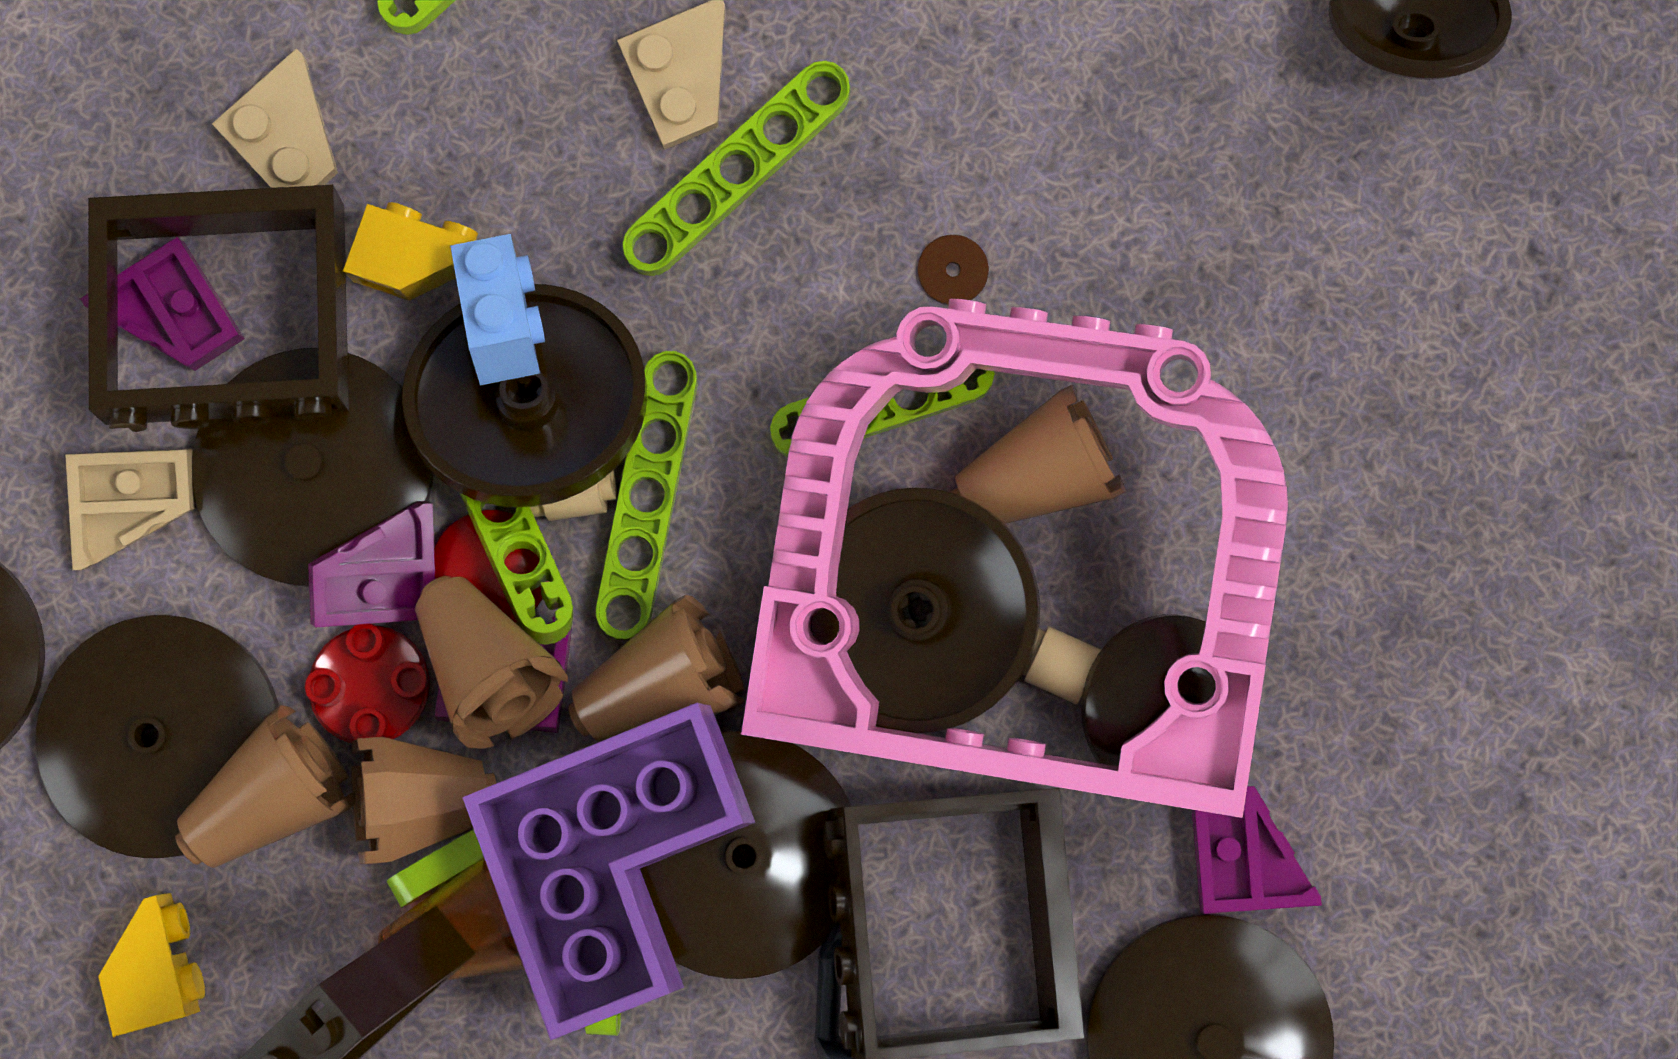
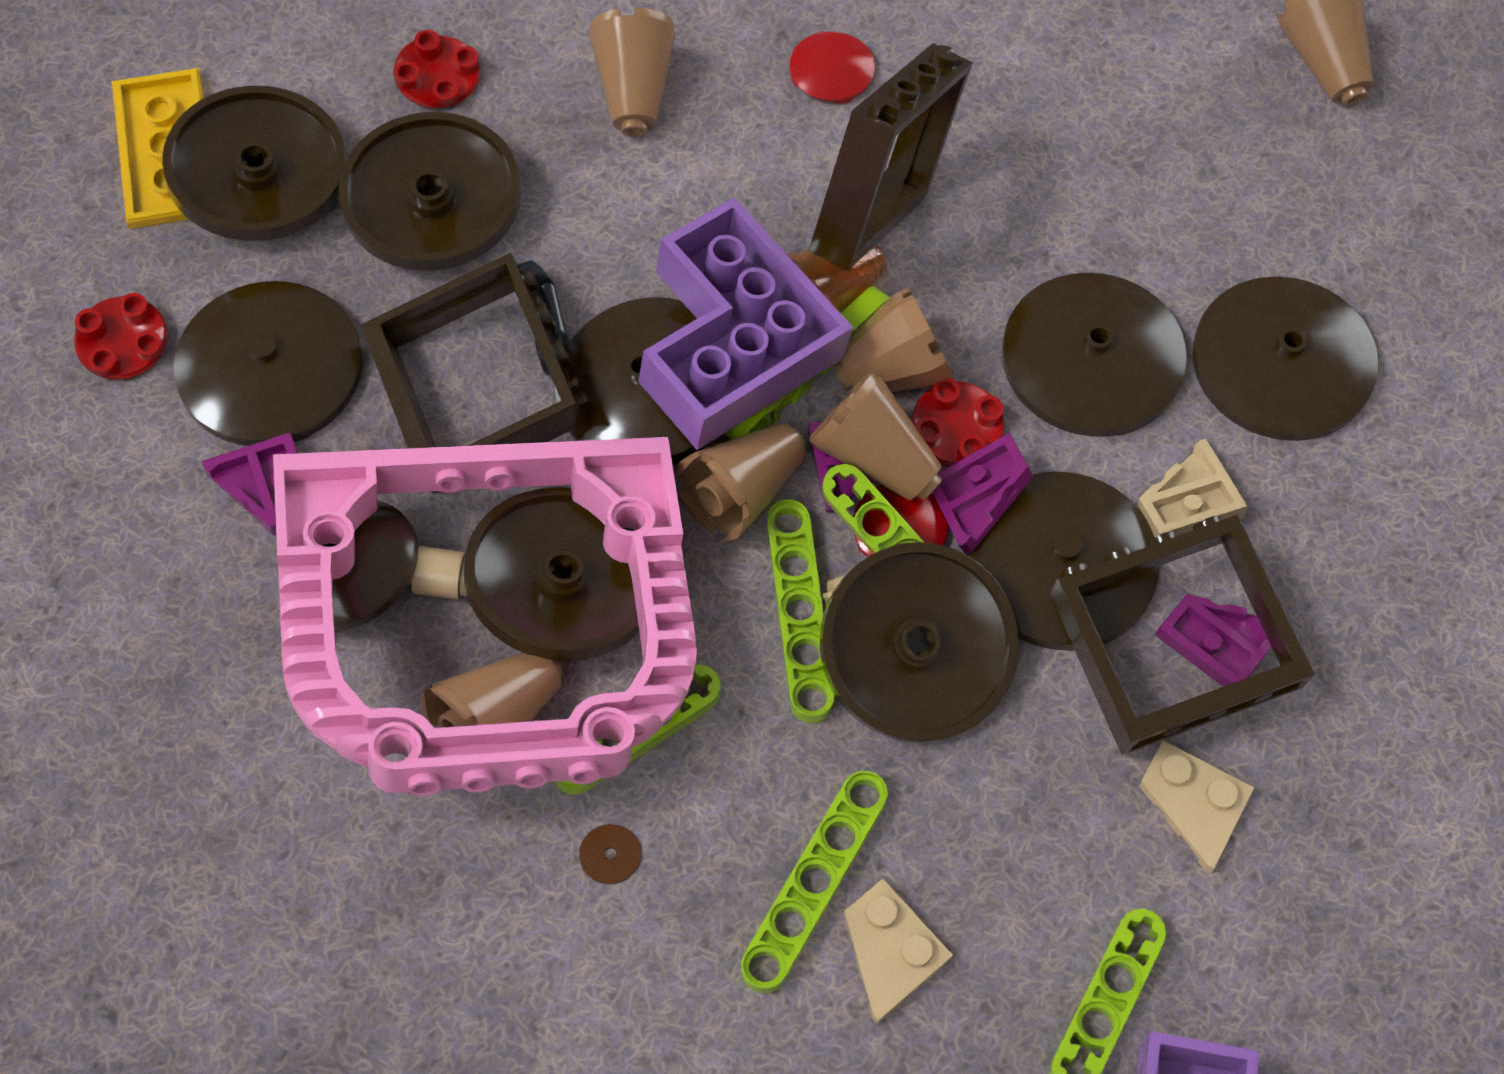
camera: 160 degrees right, 20 degrees down
(143, 978) = (1030, 204): yellow slope -> none
(265, 792) = (994, 323): medium nougat cone -> none
(402, 253) = (1061, 722): yellow slope -> none
(495, 308) = (964, 688): light blue brick -> none

